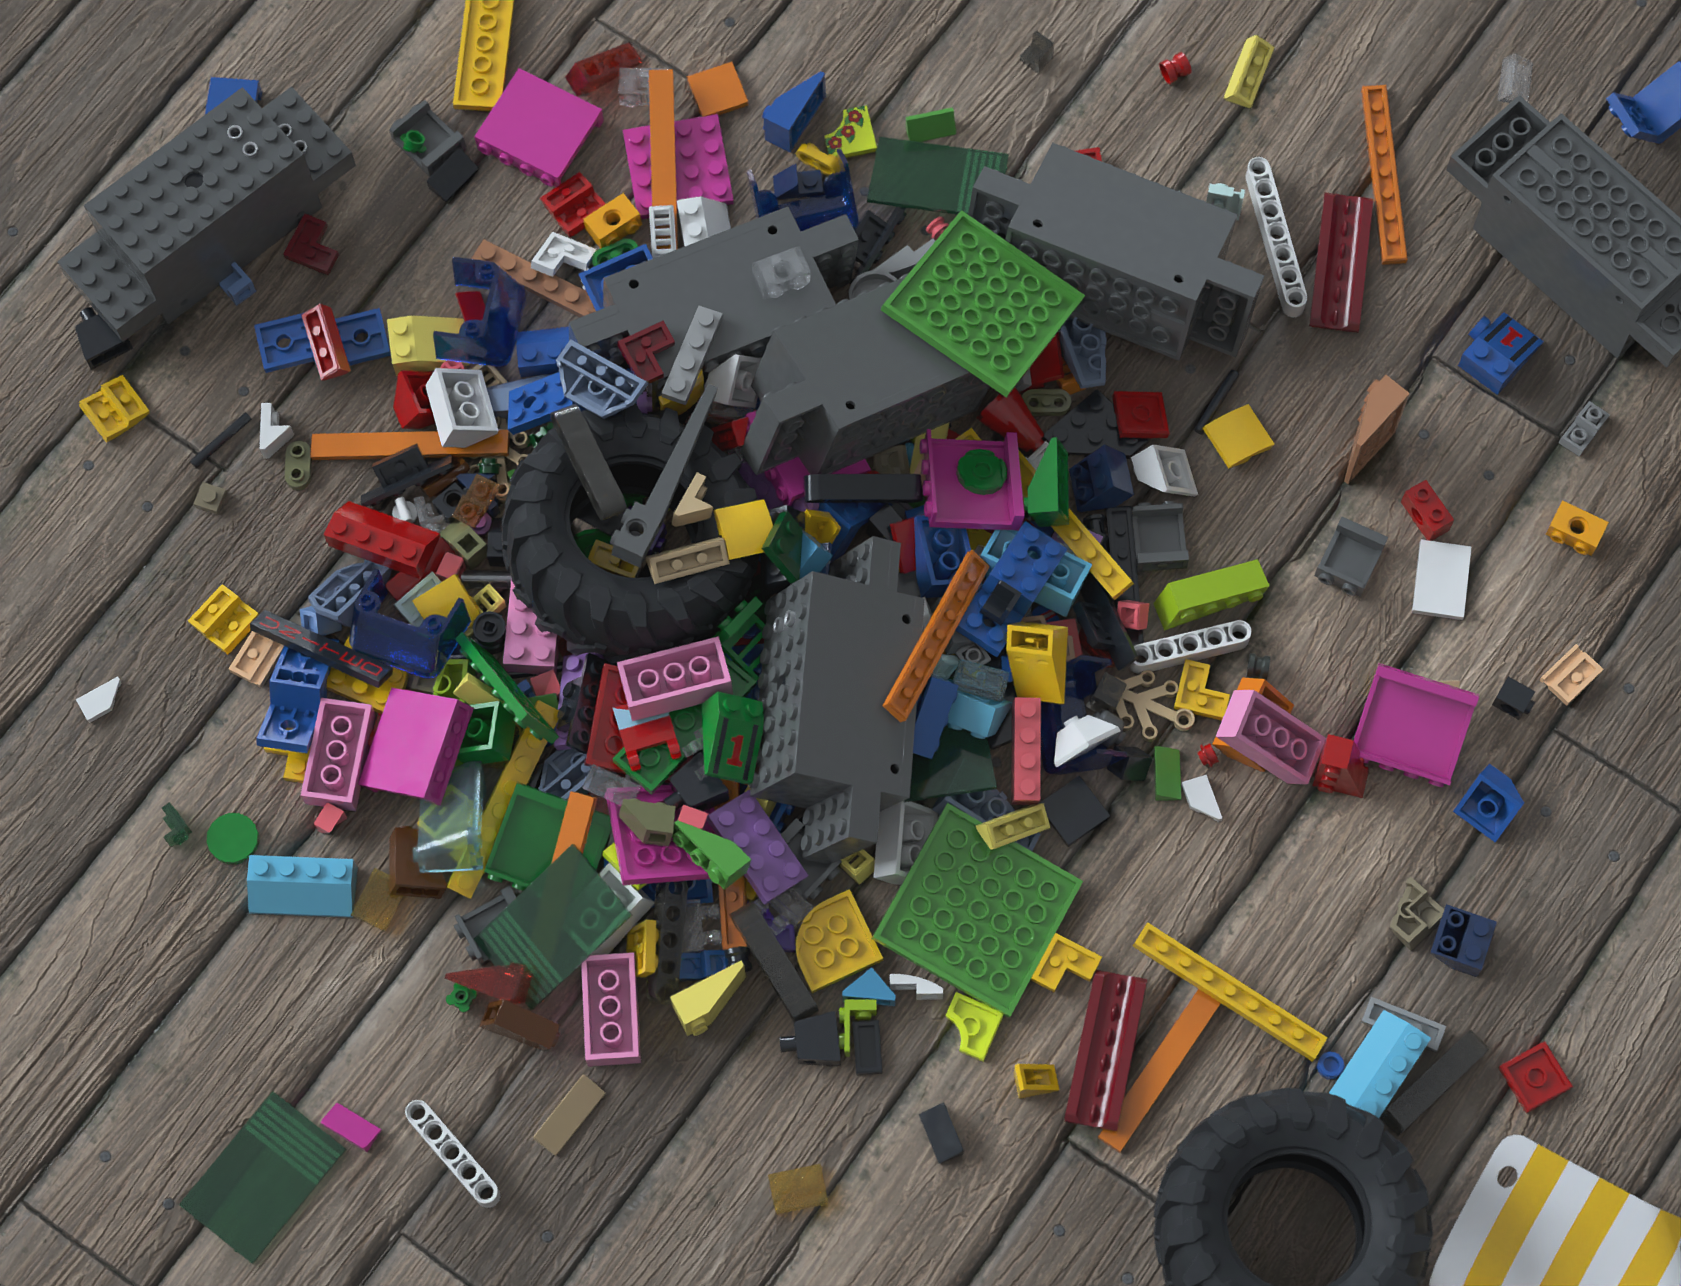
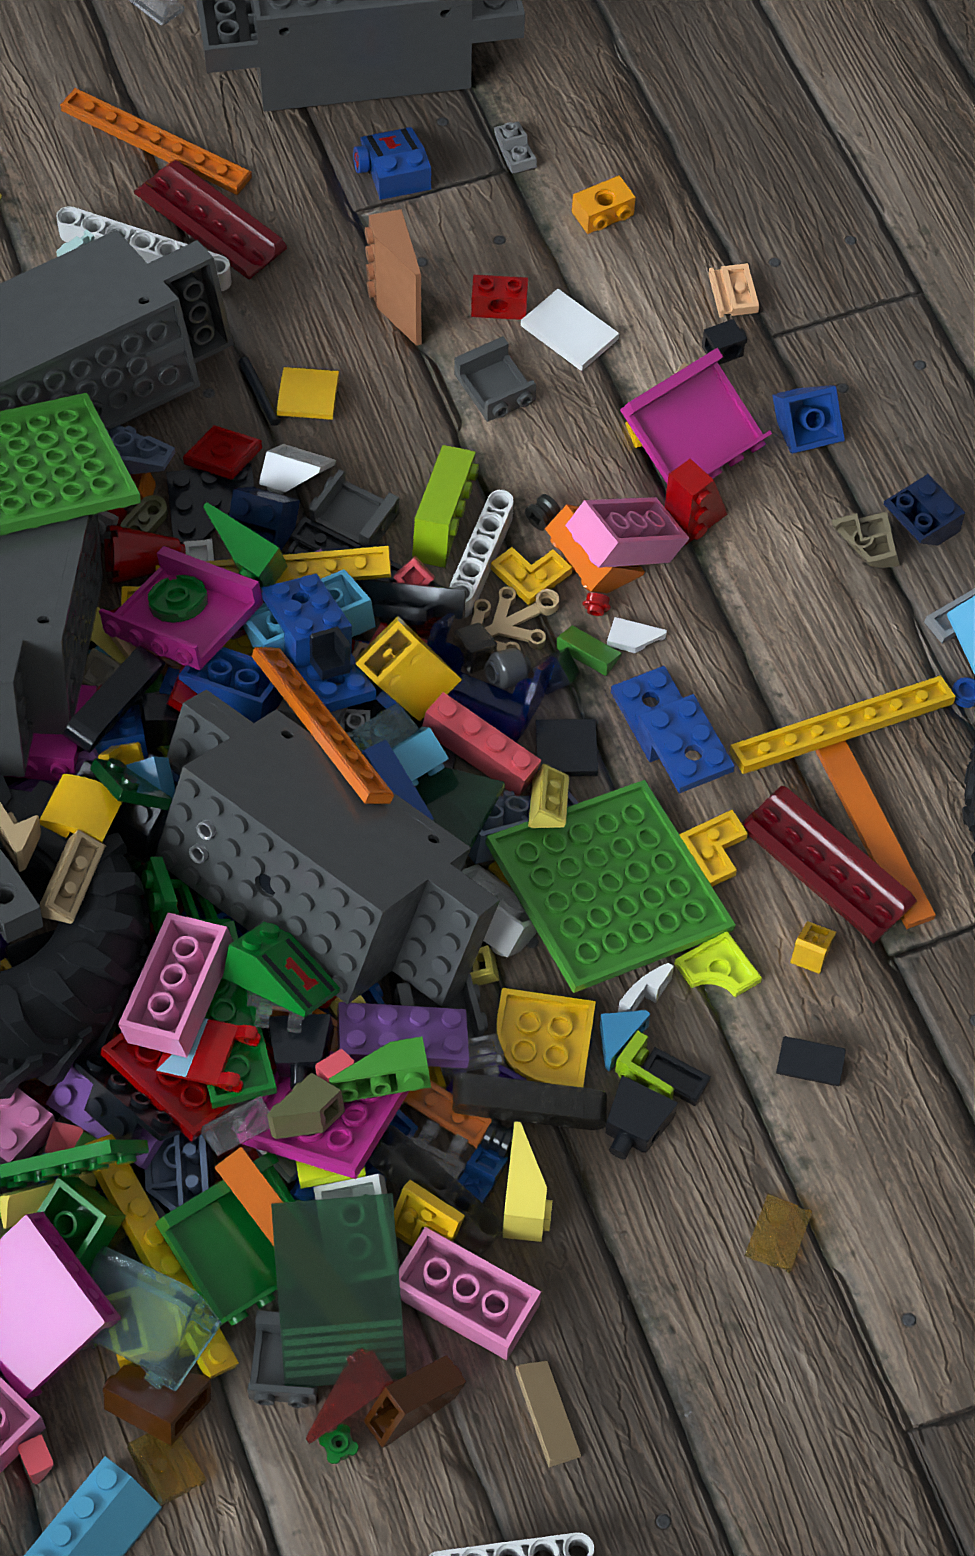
camera: 60 degrees left, 10 degrees down
(1081, 737) = (508, 684): white slope -> none
(1136, 873) = (672, 729): none -> blue bracket

